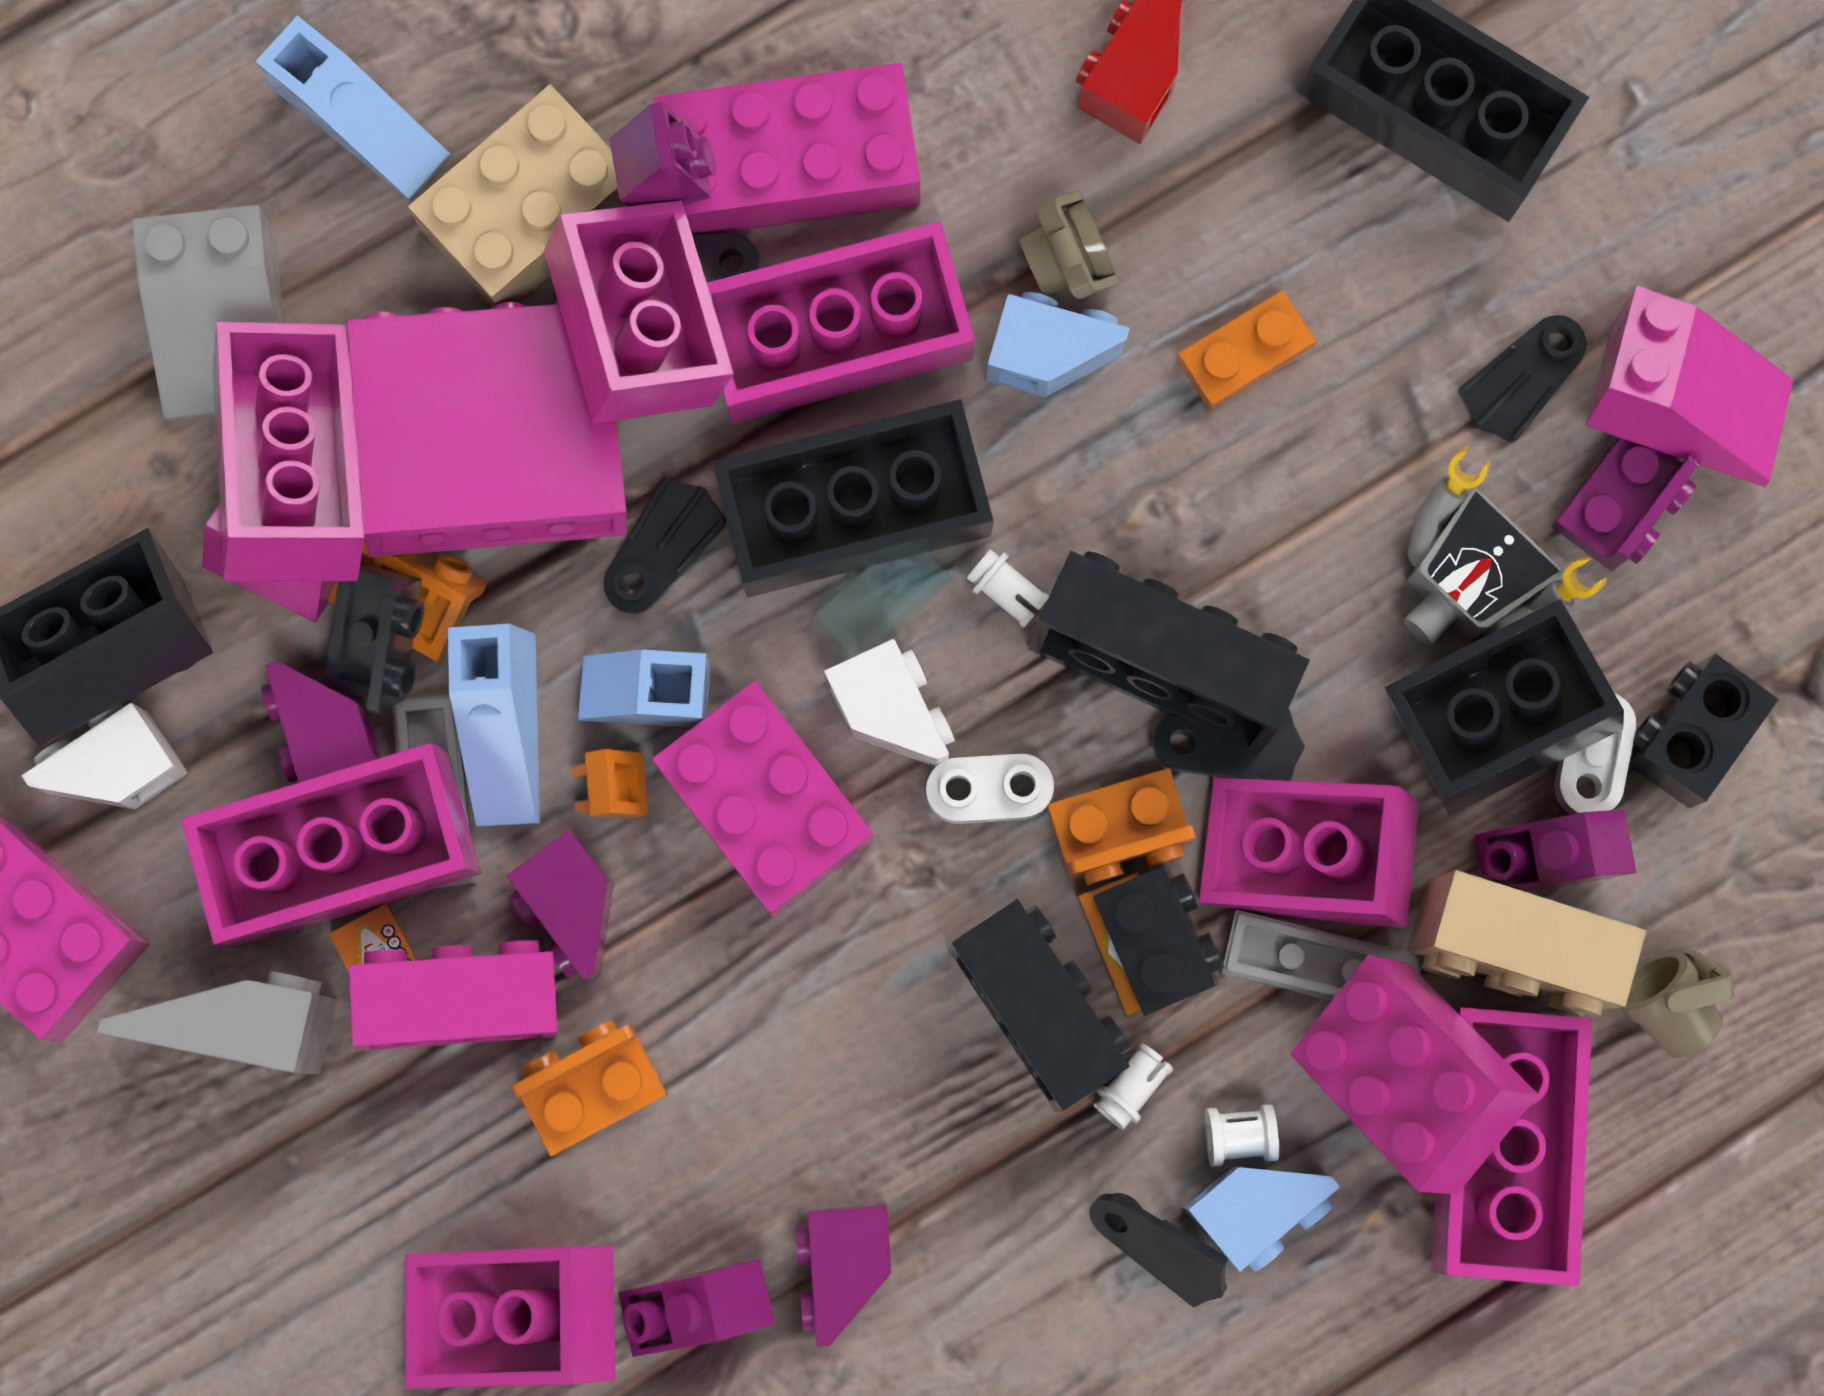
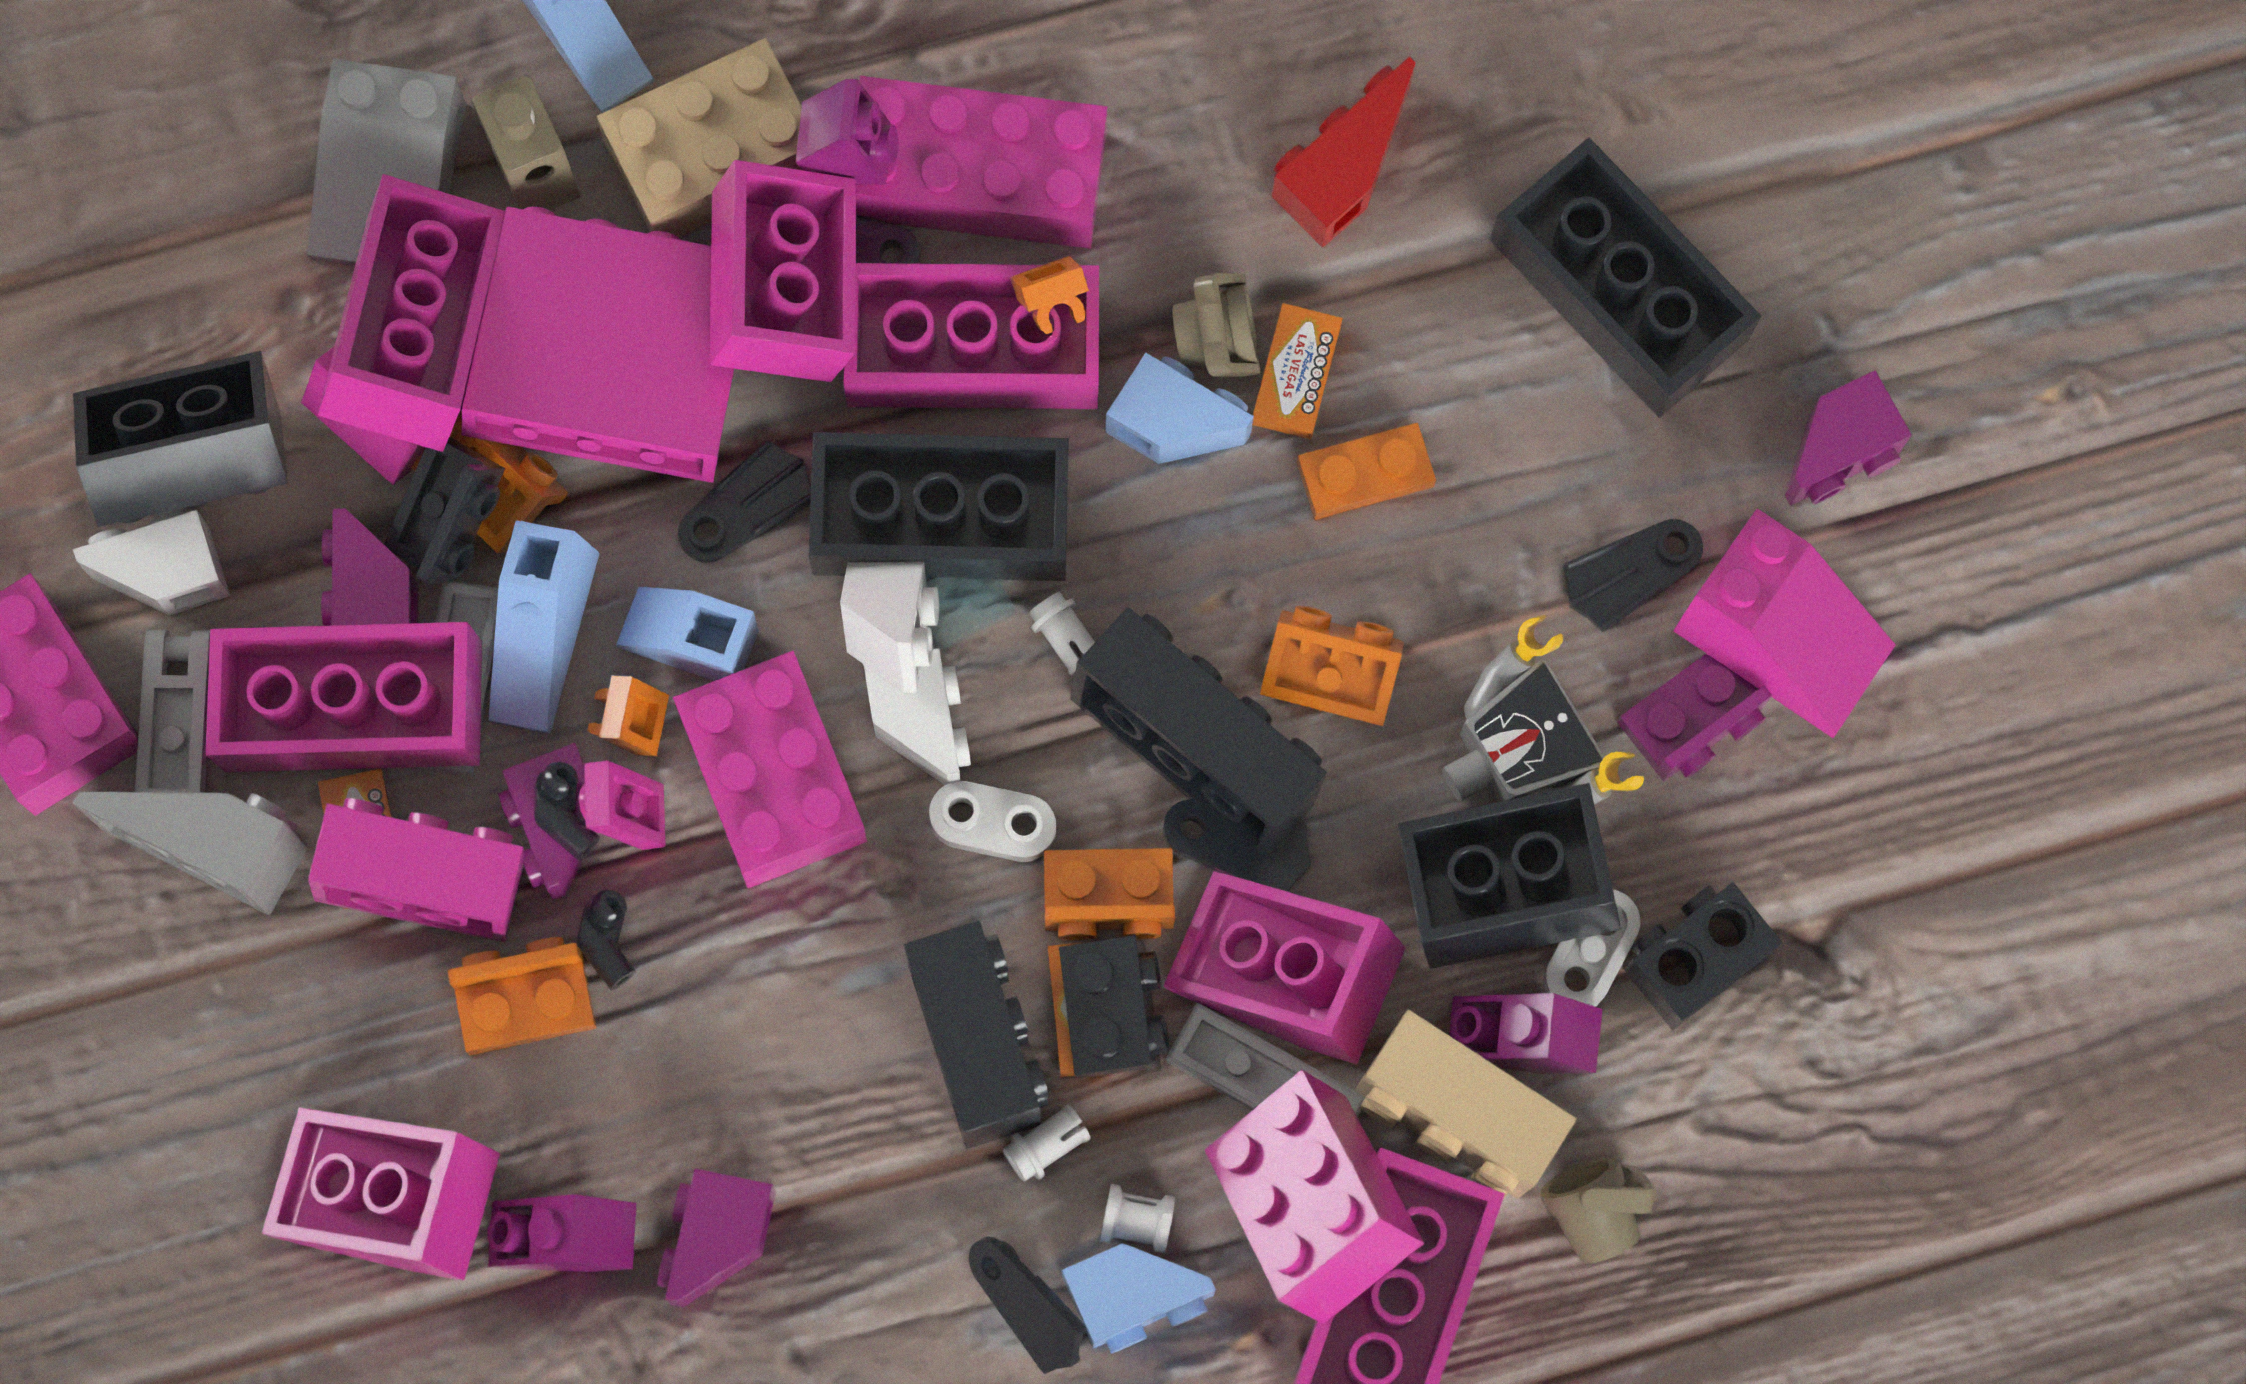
camera: 15 degrees right, 5 degrees down
(169, 912) = (173, 714): none -> light grey plate
(343, 251) = (525, 139): none -> dark tan torso
(571, 900) = (556, 810): none -> black arm
(633, 877) = (623, 805): none -> dark pink plate
(646, 1006) = (600, 934): none -> black arm
(836, 625) = (888, 619): none -> white slope
(903, 253) = (1050, 285): none -> orange tile
(1152, 270) = (1296, 371): none -> tile
(1271, 547) = (1332, 665): none -> orange bracket
(1691, 189) = (1844, 435): none -> magenta slope

